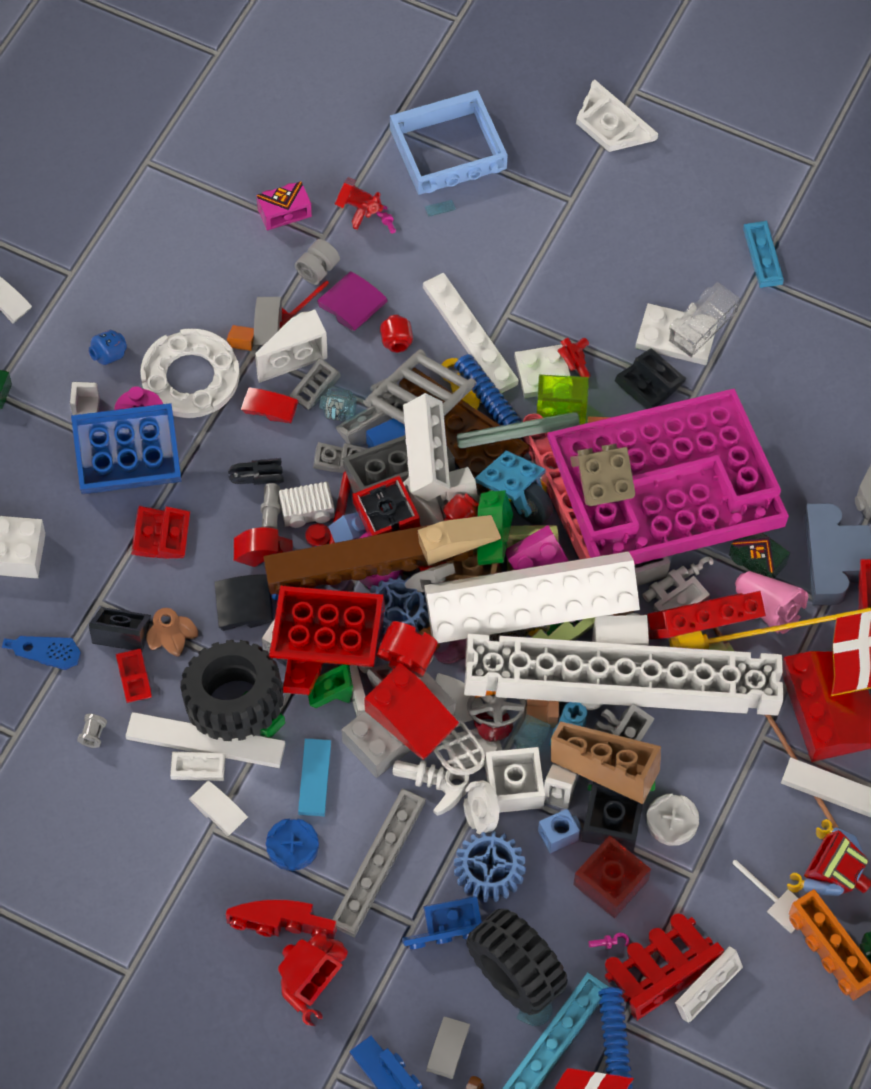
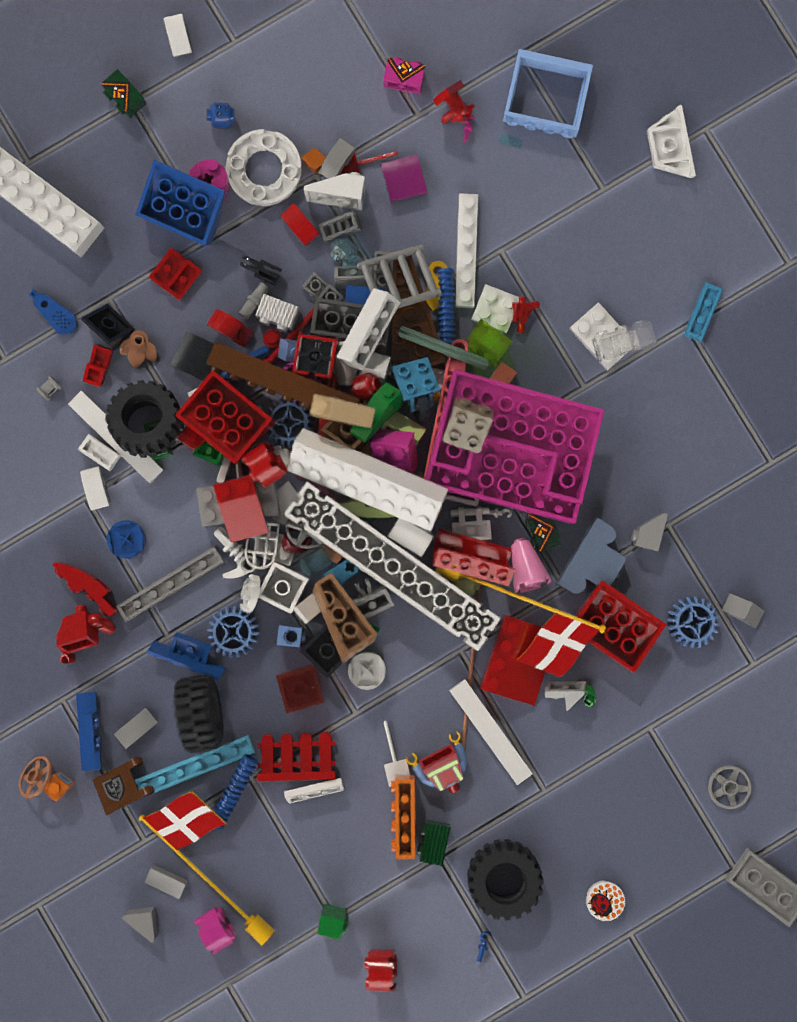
camera: 35 degrees right, 25 degrees up
(84, 398) = (182, 147): white panel -> none
(314, 777) = (166, 504): dark azure tile -> none
(318, 260) = (398, 134): light grey wheel -> none
(396, 333) = (415, 222): red head -> none
(430, 576) = (313, 424): light grey slope -> none
(608, 941) = (274, 722): dark pink hand -> none
(650, 379) = (561, 359): black slope -> none

